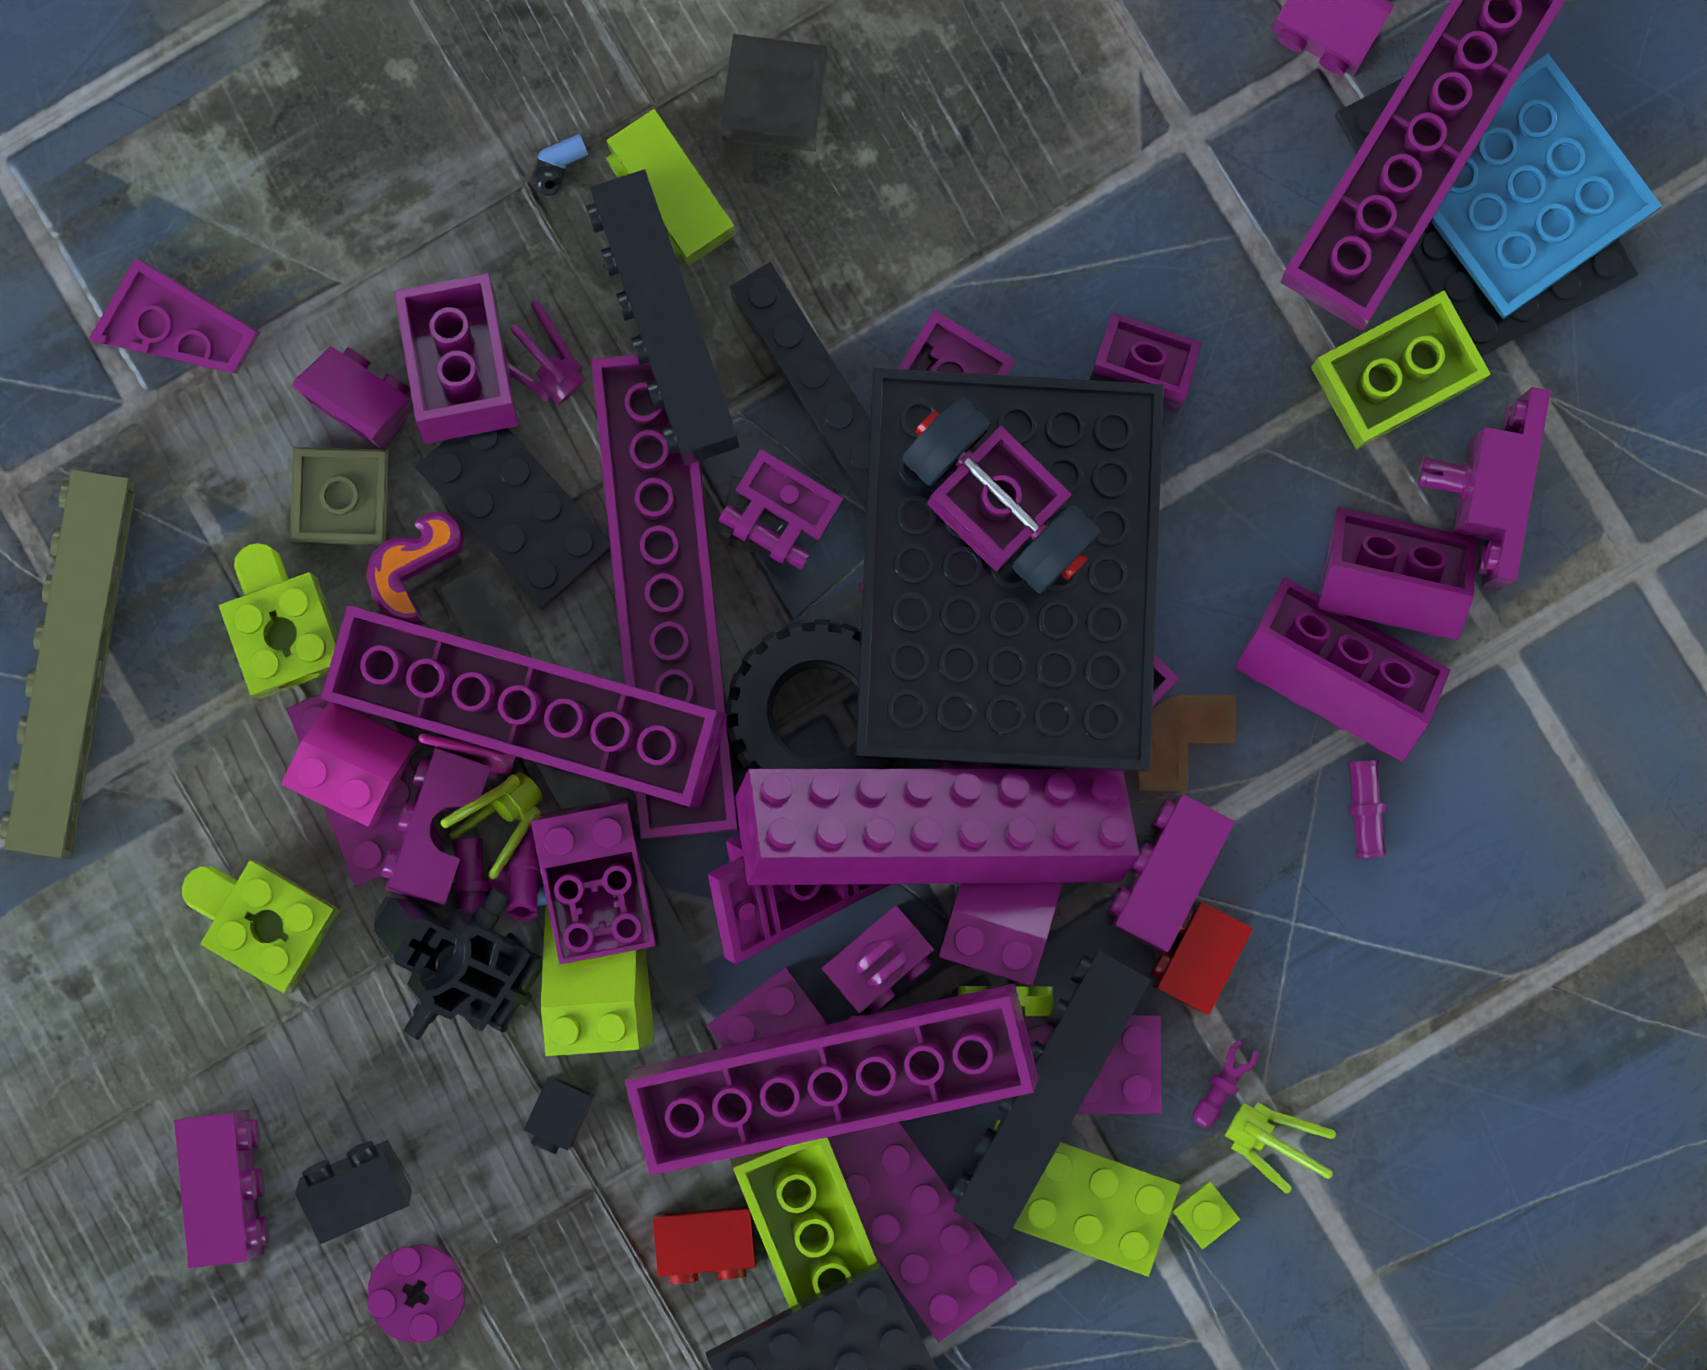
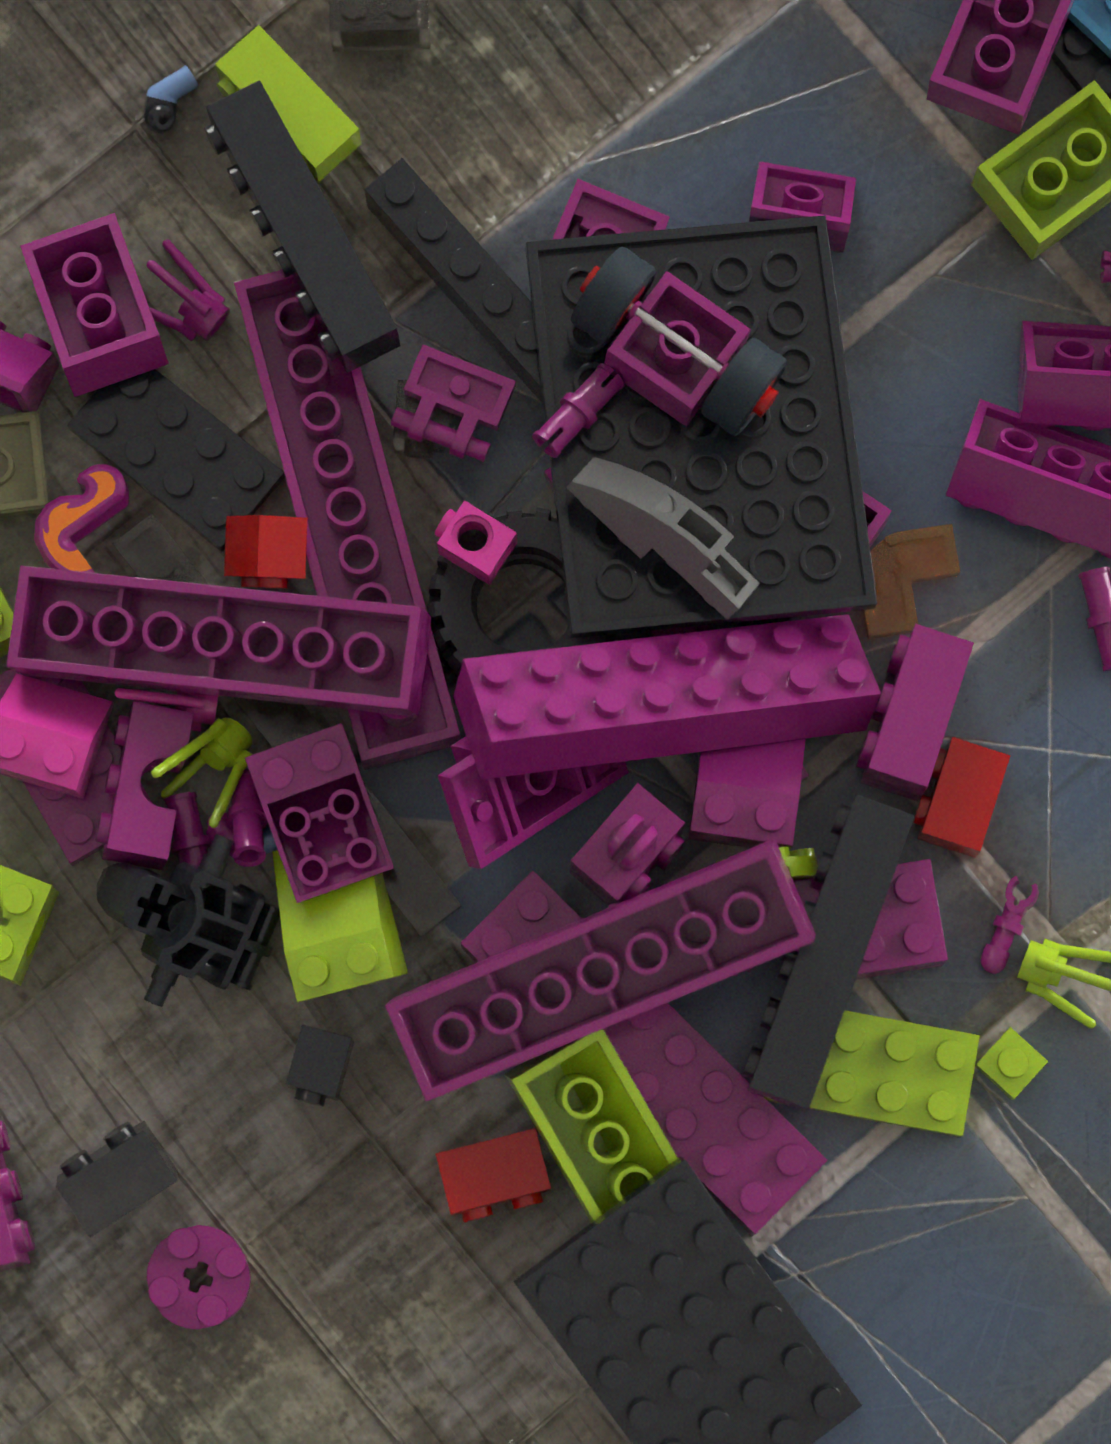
camera: 10 degrees left, 5 degrees down
(582, 621) = (265, 549): none -> red brick
(785, 672) = (481, 563): none -> dark pink brick
(896, 542) = (578, 410): none -> magenta pin
(955, 661) = (657, 517): none -> dark grey slope

